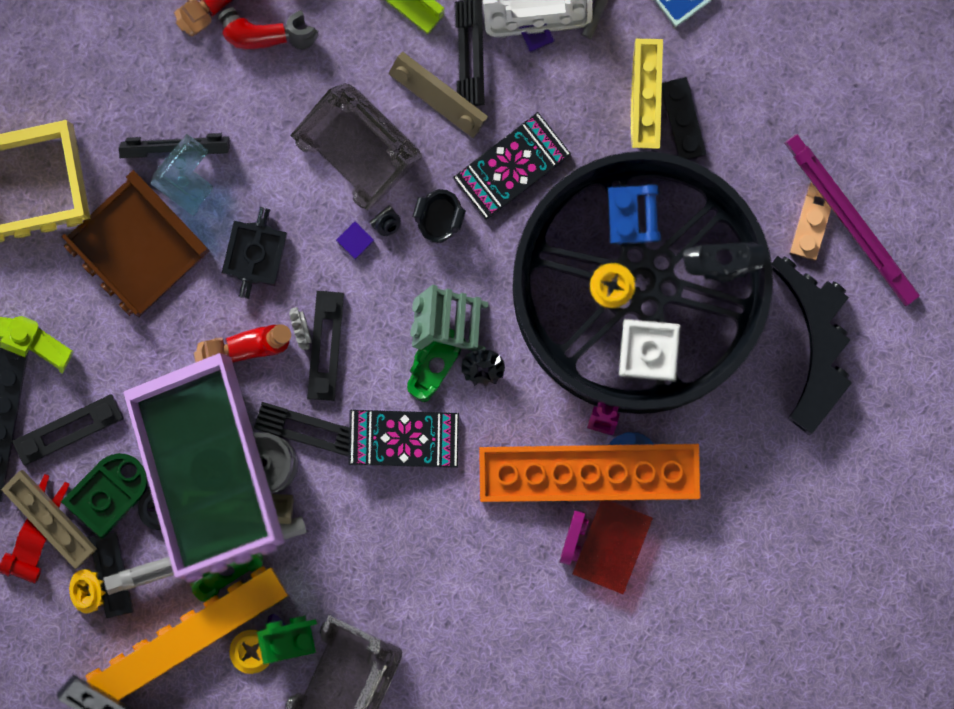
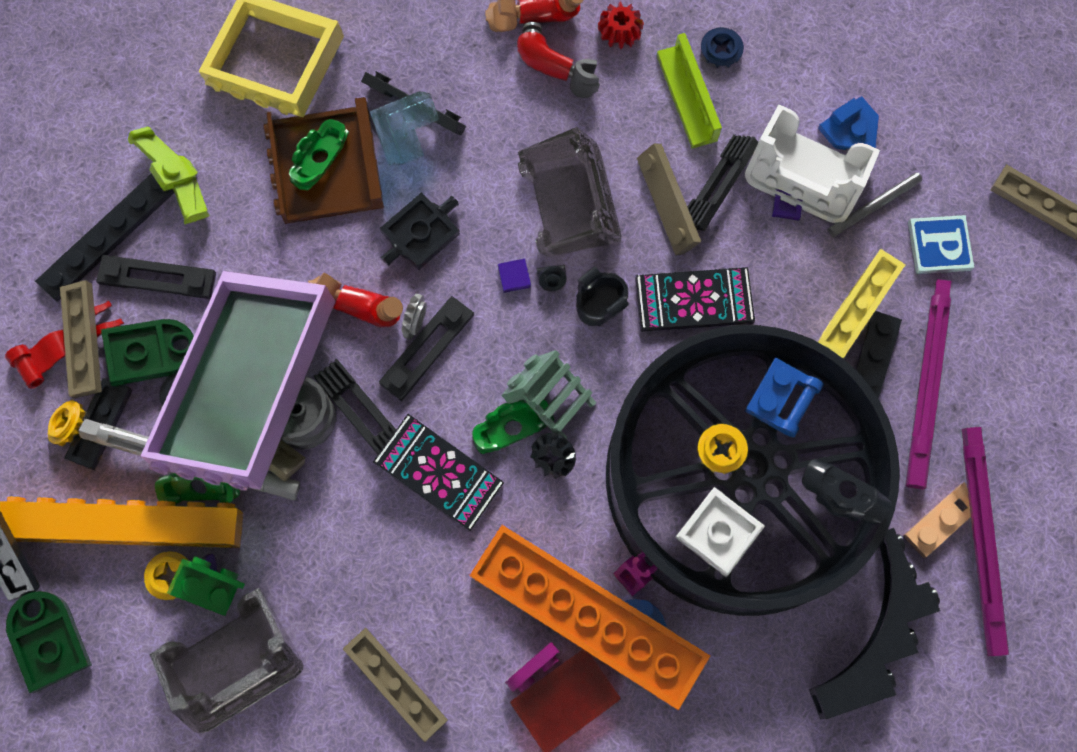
camera: 30 degrees right, 10 degrees down
(126, 223) = (328, 138): none -> green piece
(478, 617) = (395, 684): none -> dark tan plate
(739, 117) = (929, 387): none -> magenta piece

